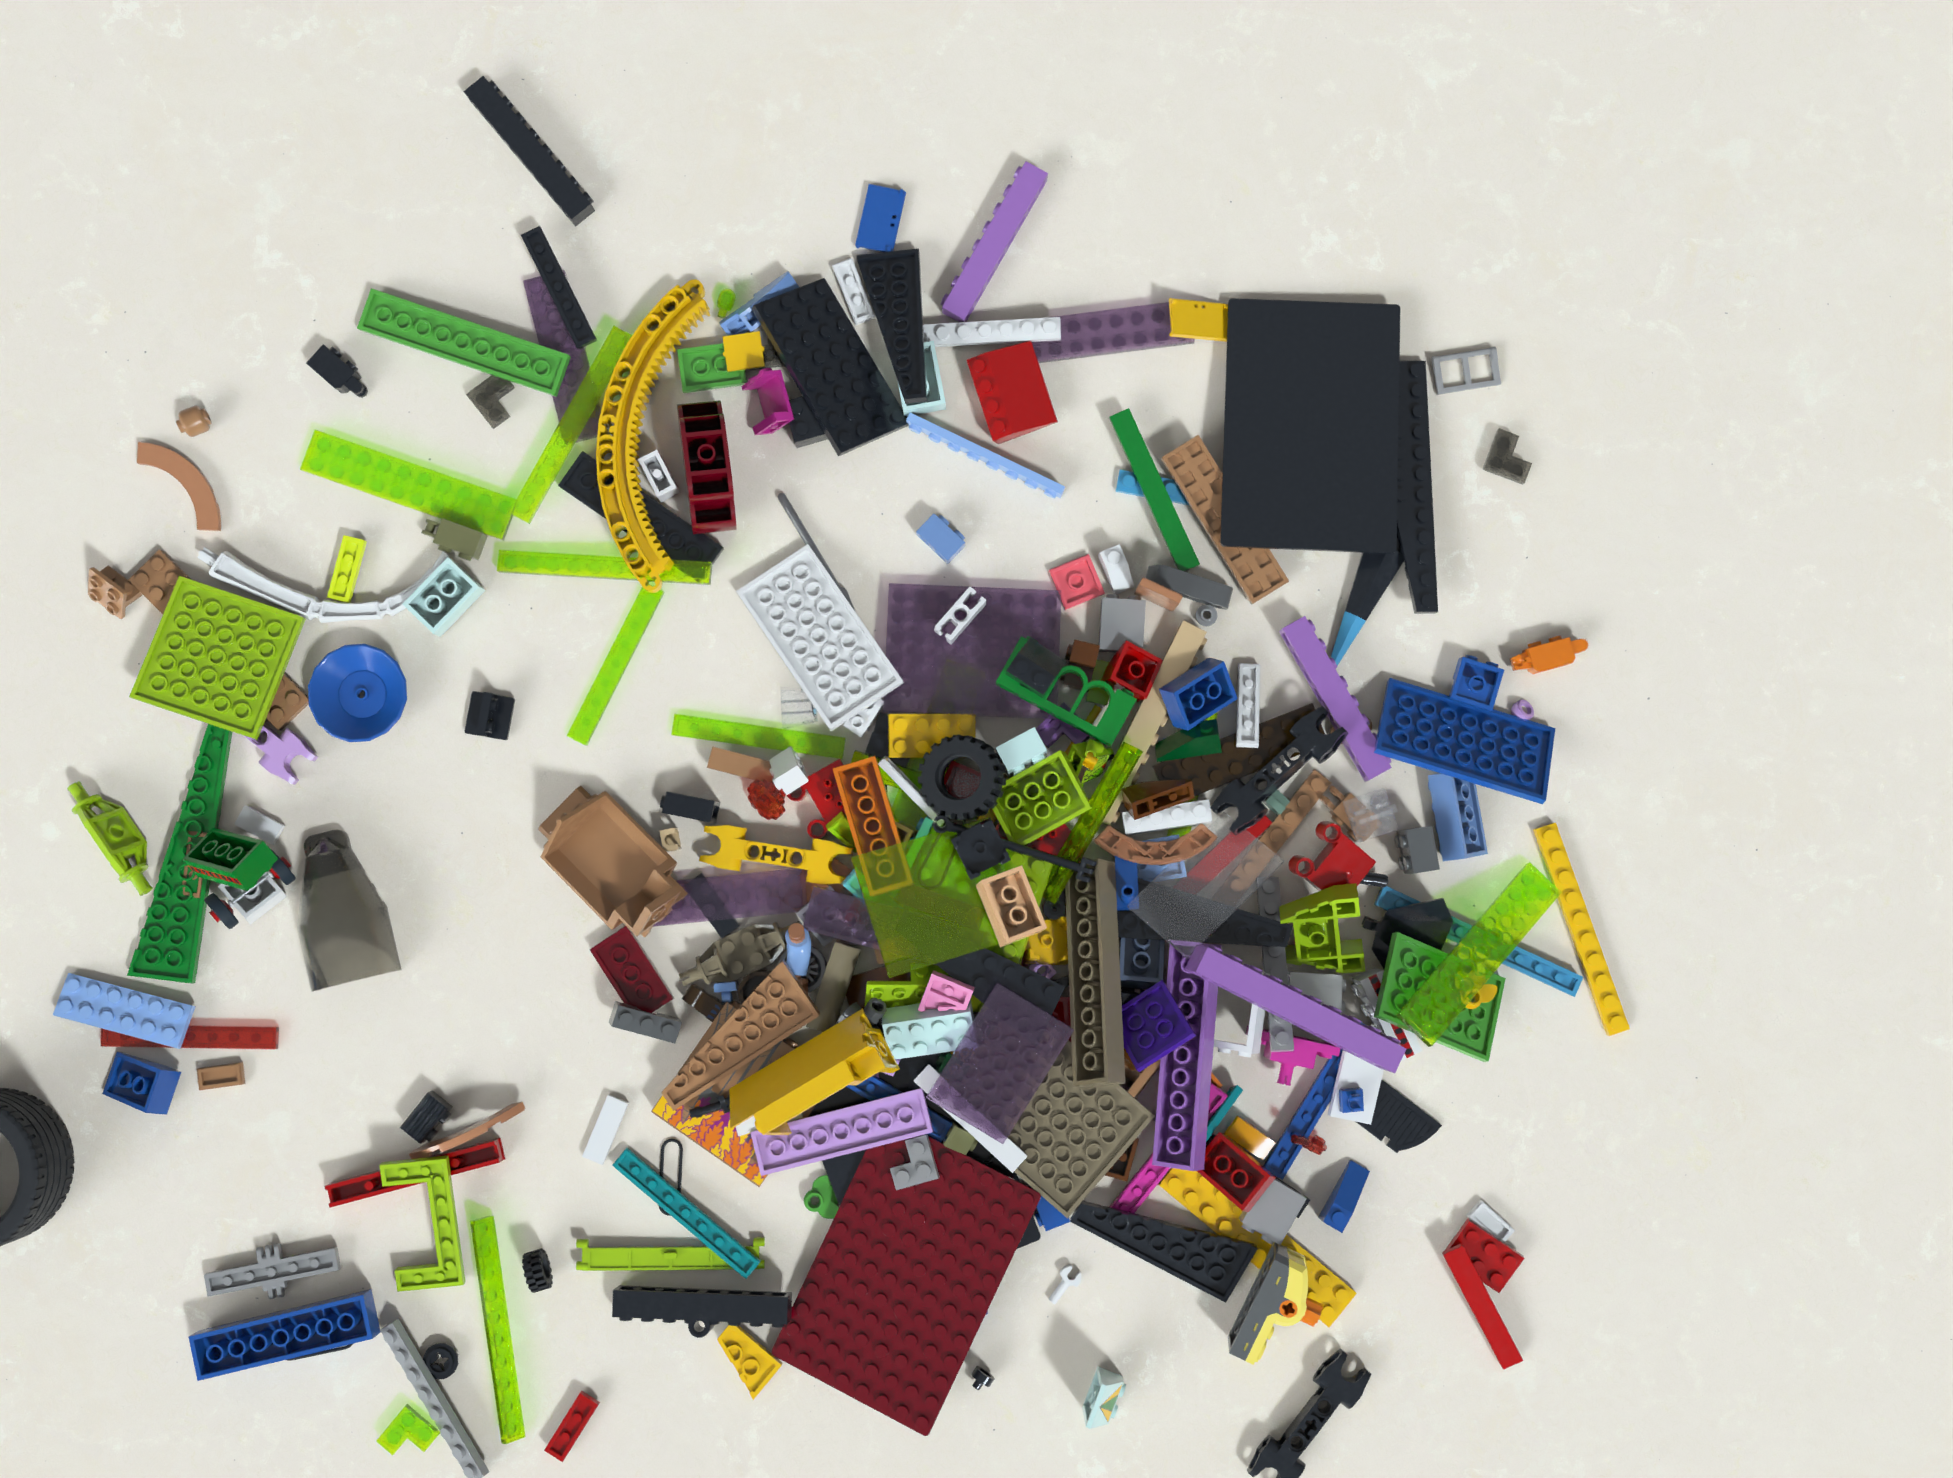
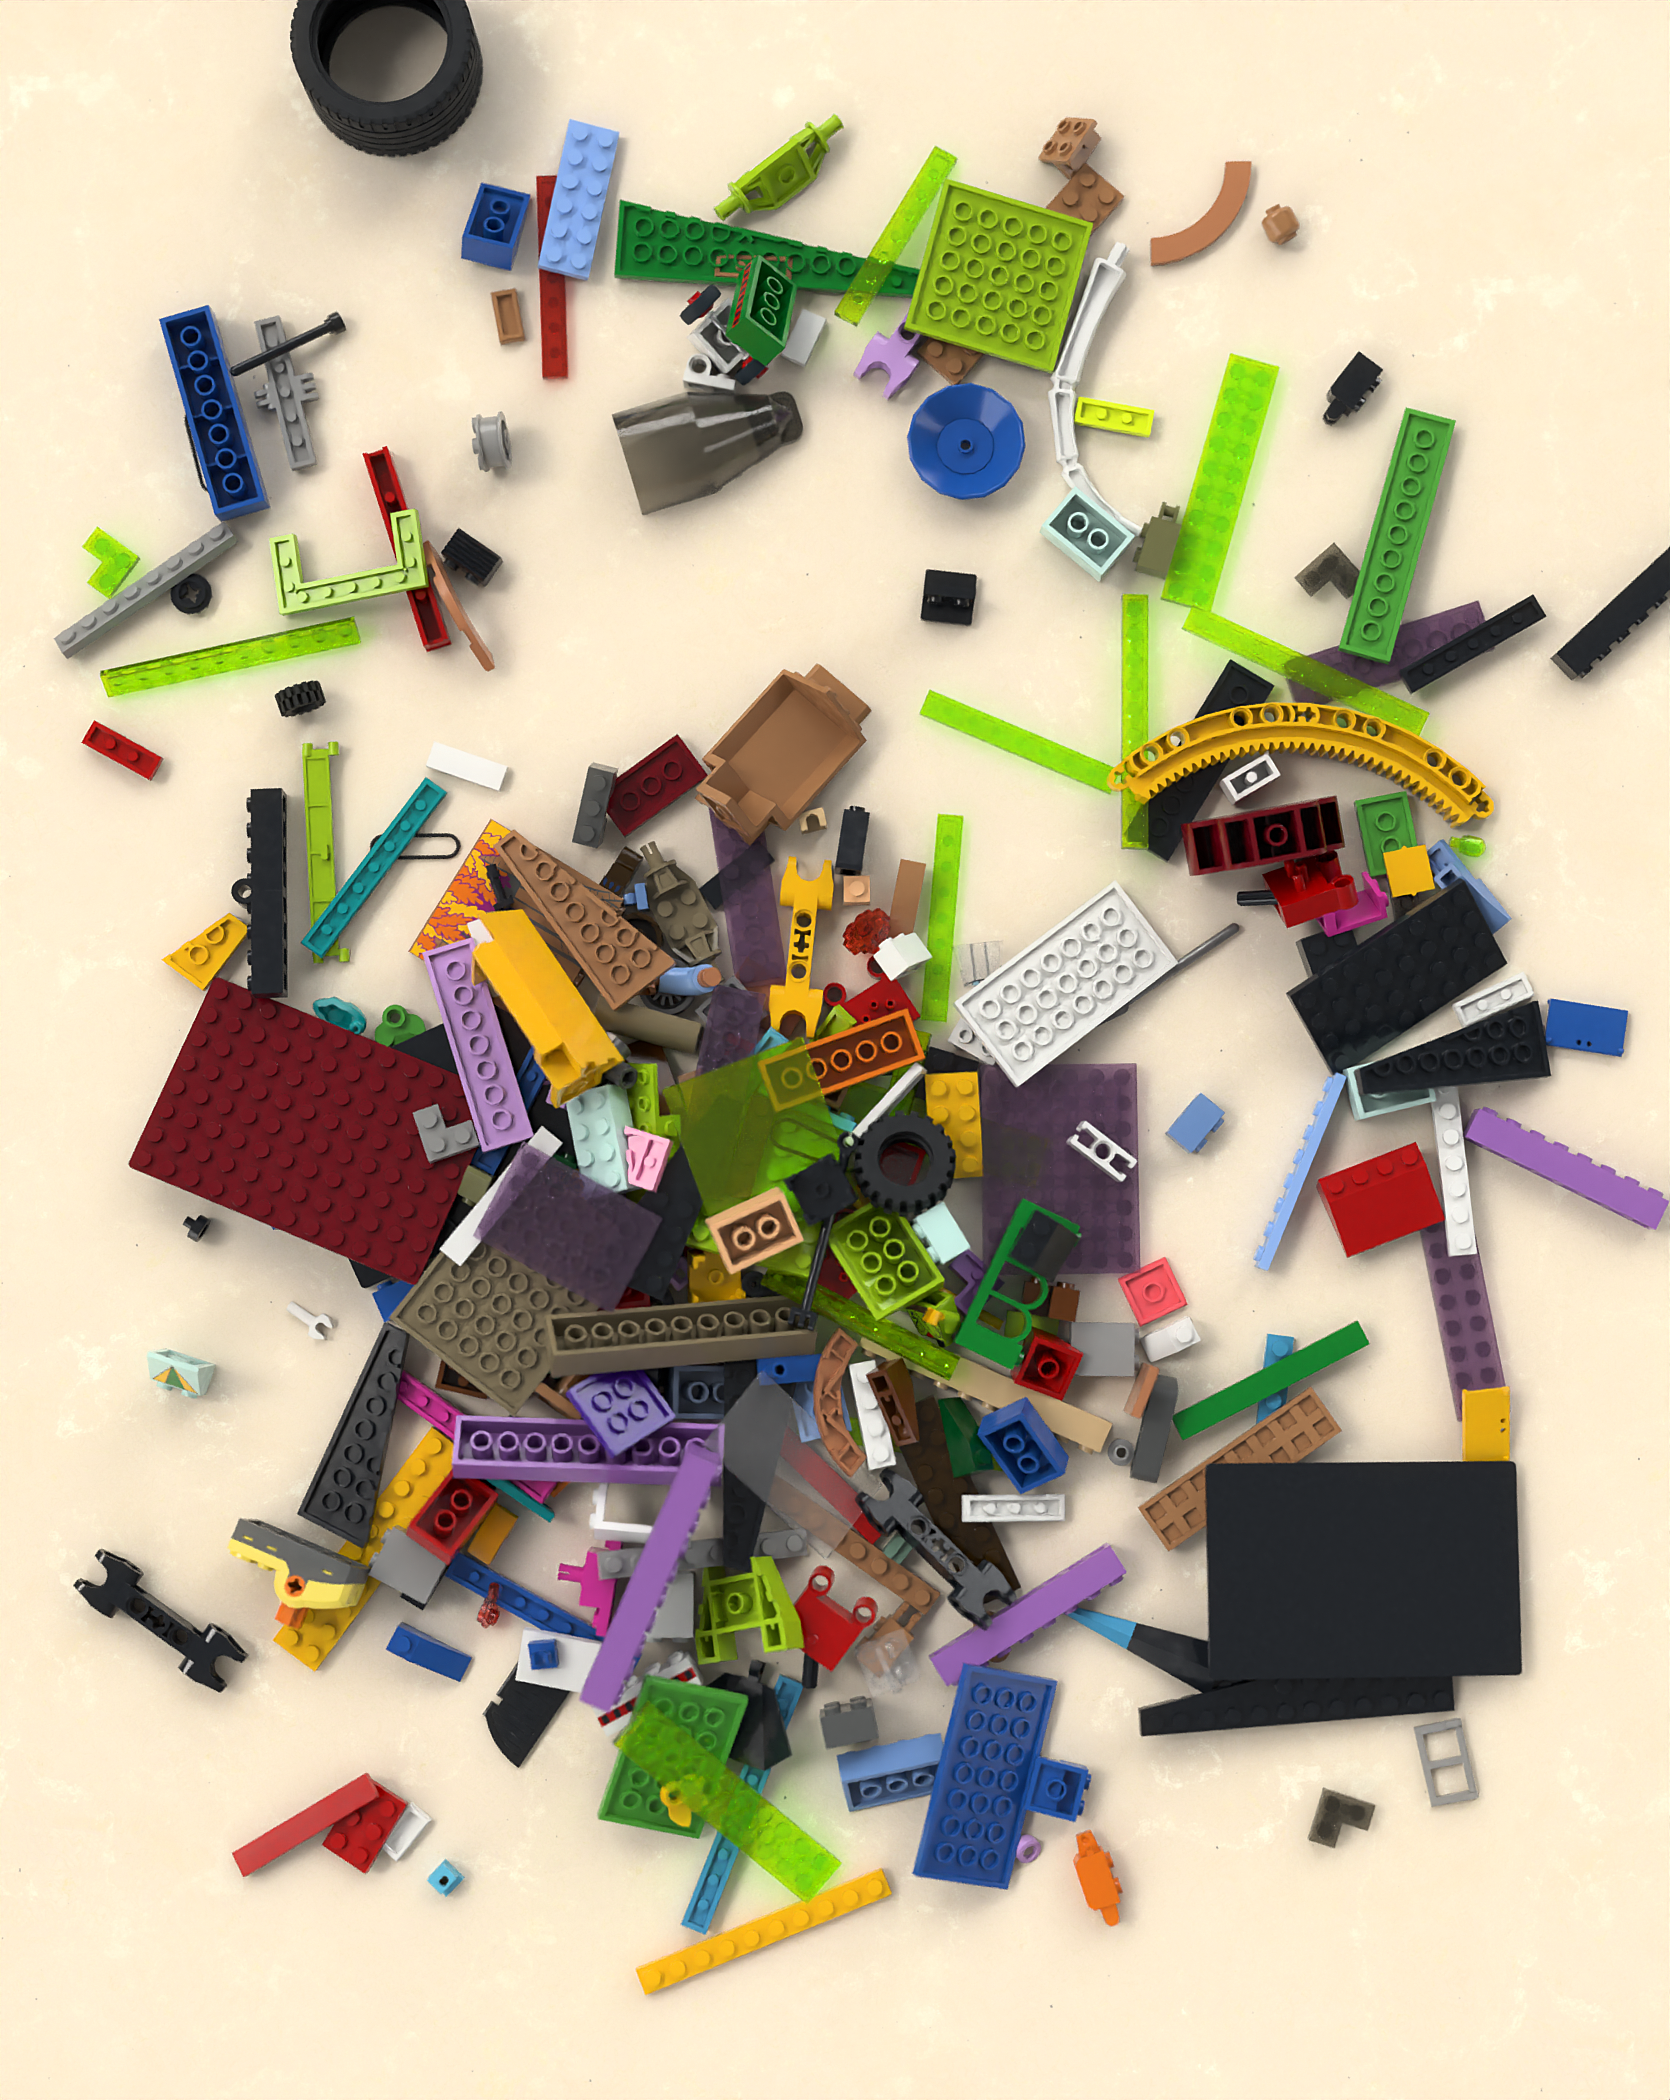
camera: 90 degrees right, 0 degrees up
(177, 742) = (895, 236): none -> clear neon green tile
(216, 1228) = (331, 325): none -> black piece
(289, 910) = (705, 381): none -> white plate
(327, 1095) = (491, 441): none -> light grey wheel
(731, 806) = (856, 890): none -> light nougat brick
(753, 435) = (1305, 889): none -> red piece
(808, 1247) = (340, 1014): none -> teal arm
(1524, 1187) = (449, 1871): none -> medium azure piece

